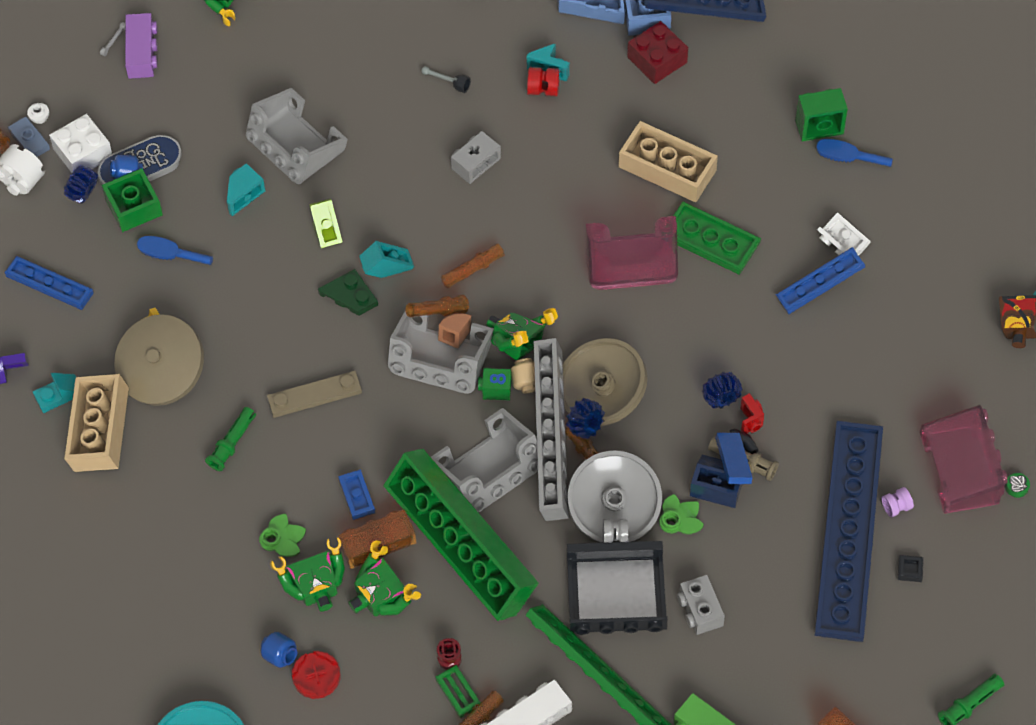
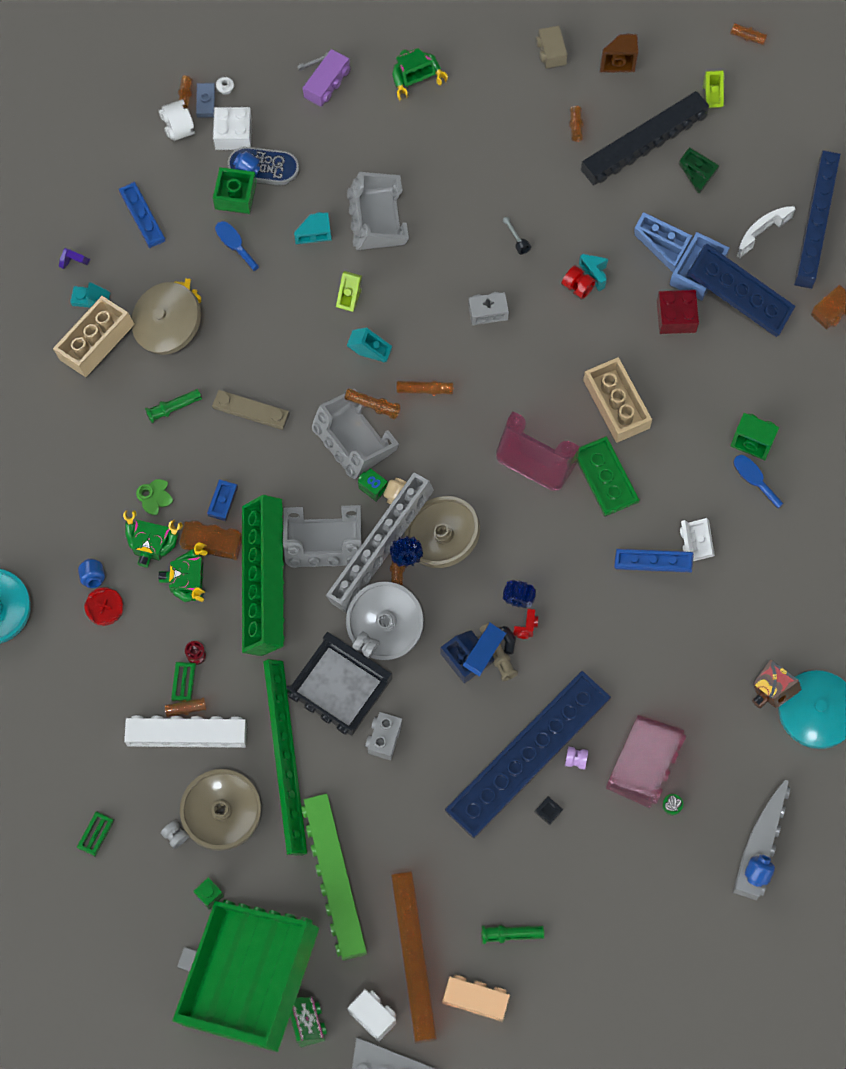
camera: 35 degrees right, 10 degrees up
(80, 184) = (210, 157): clear blue gear -> none
(350, 292) = (329, 352): dark green wing -> none
(454, 329) = (375, 426): nougat brick -> none
(517, 333) = (414, 457): green torso -> none
(682, 514) = (425, 663): bright green plate -> none

